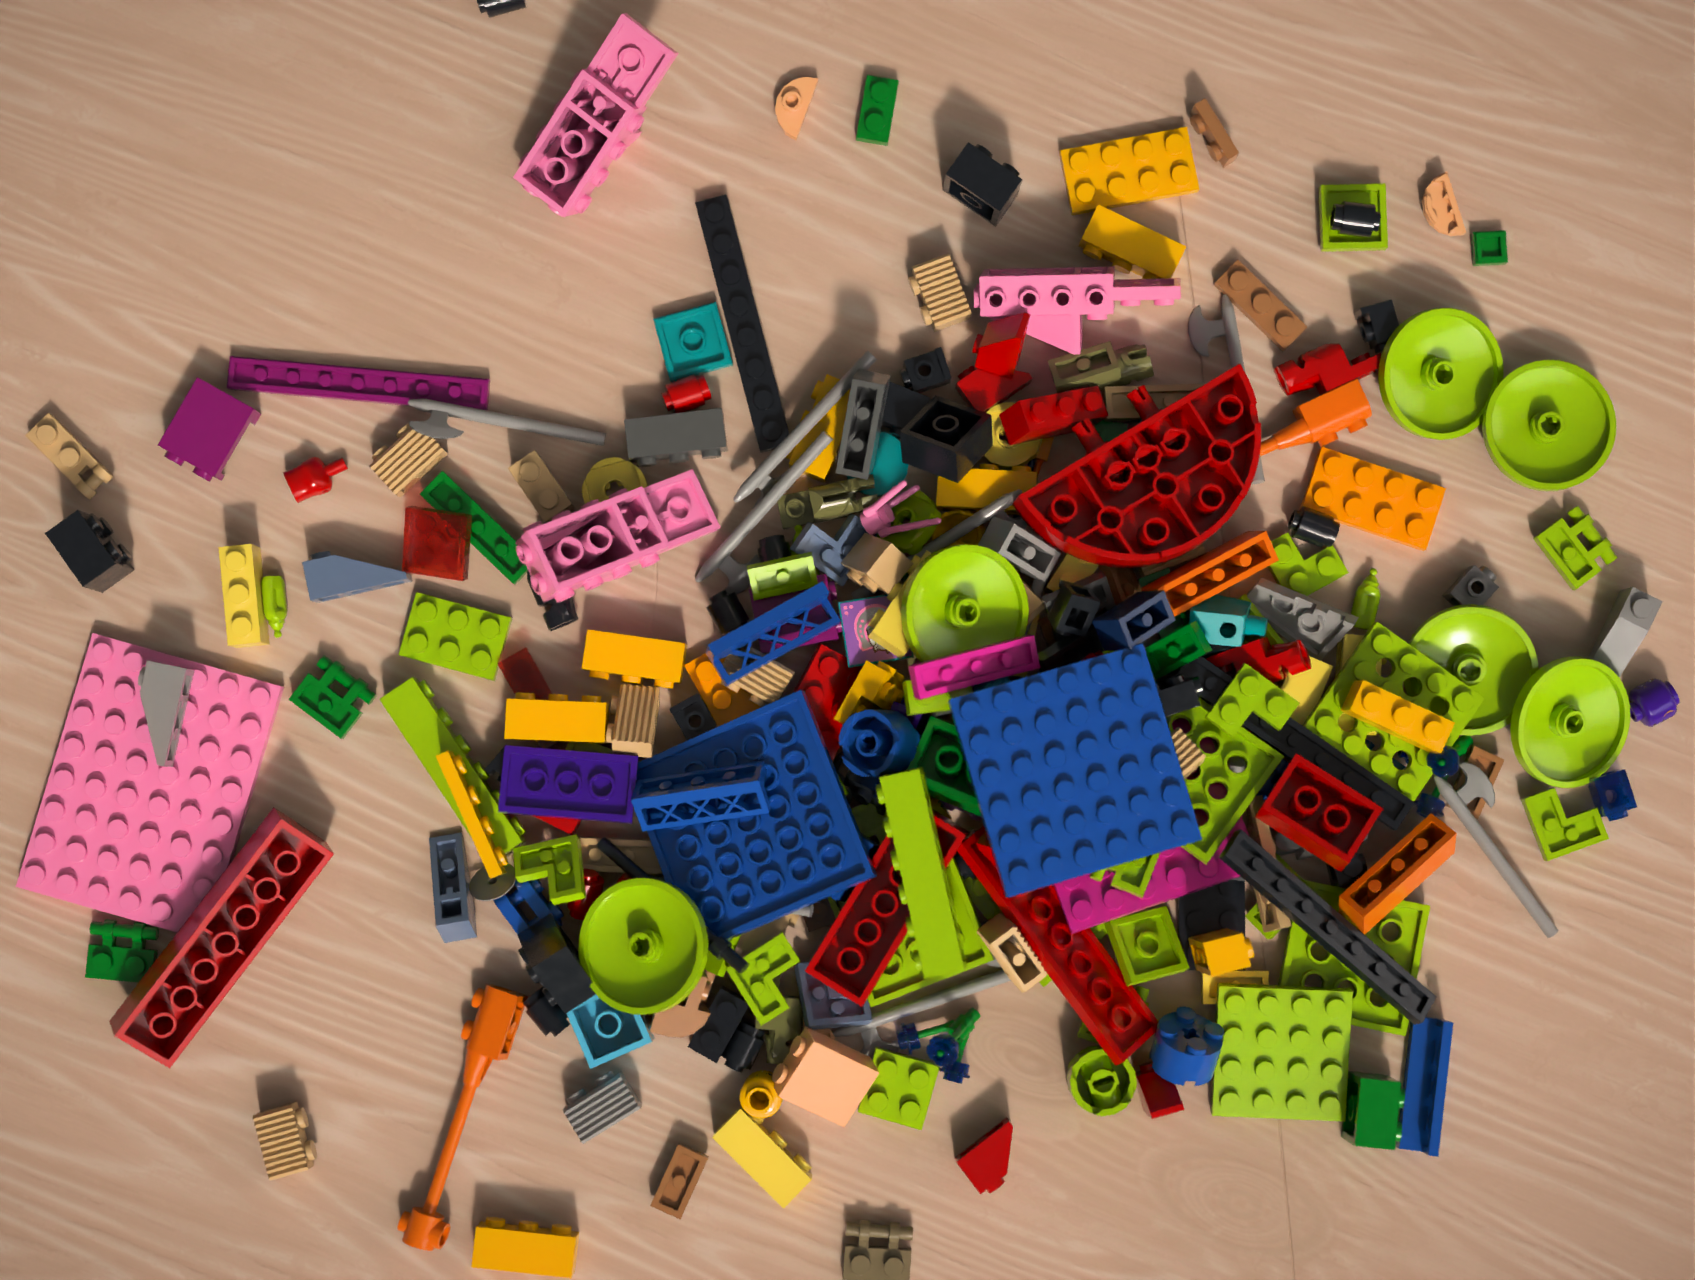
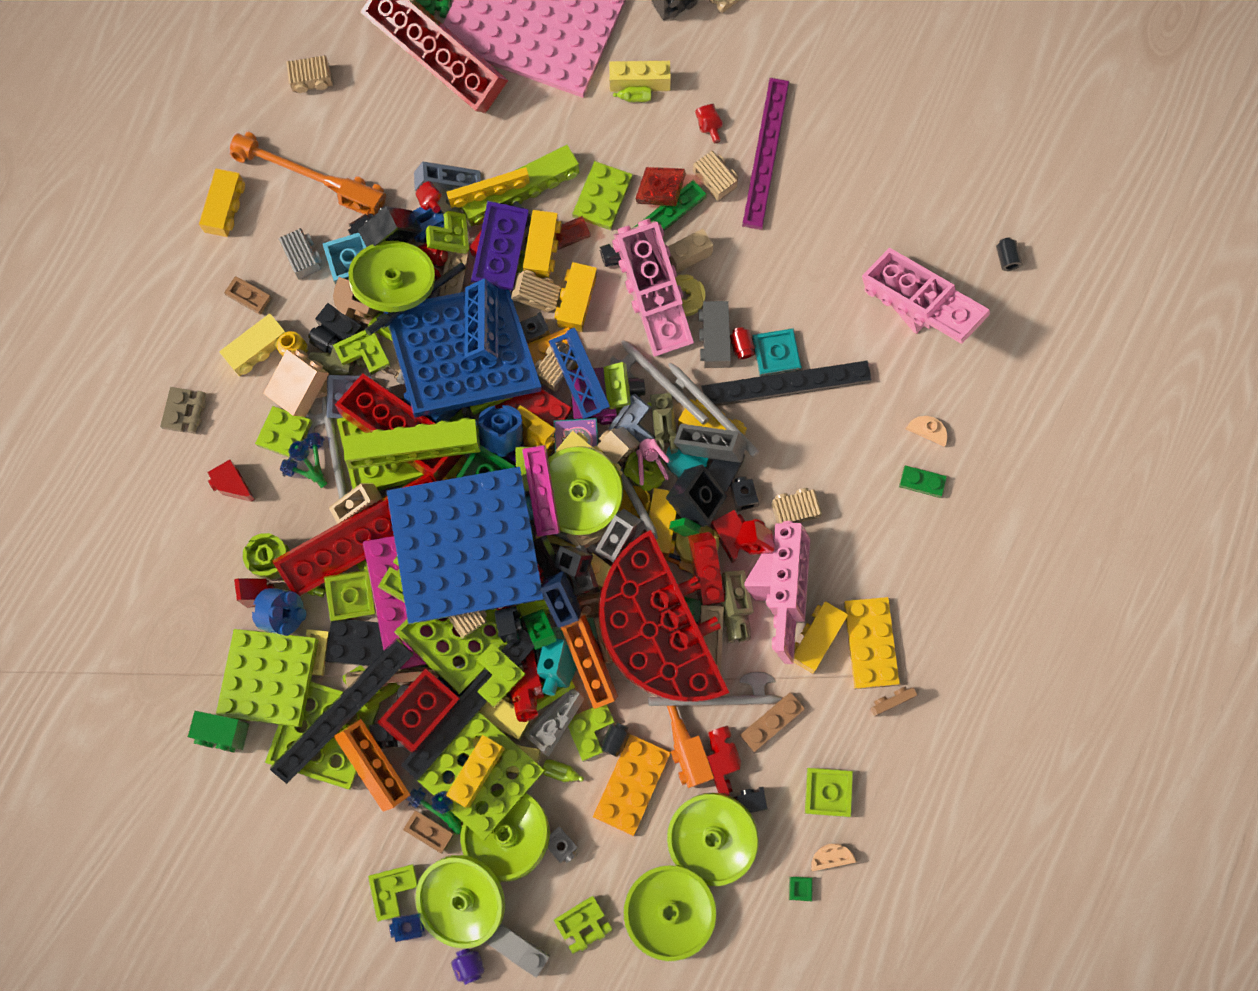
camera: 100 degrees right, 10 degrees down
(164, 702) = (577, 24): light grey slope -> none
(207, 429) = (745, 63): magenta panel -> none
(325, 704) = (568, 117): green plate -> none
(338, 577) = (646, 131): sand blue slope -> none
(437, 424) = (733, 190): light grey piece -> none
(496, 907) = (428, 197): none -> red piece
(727, 612) = (600, 355): black brick -> none
(982, 183) = (862, 544): black brick -> none
(995, 451) = (684, 527): none -> green tile
(1221, 951) = (335, 634): yellow brick -> none
(1355, 219) = (825, 789): black brick -> none
(1425, 1085) = (231, 772): blue fence -> none
(1479, 785) = (425, 832): light grey piece -> none

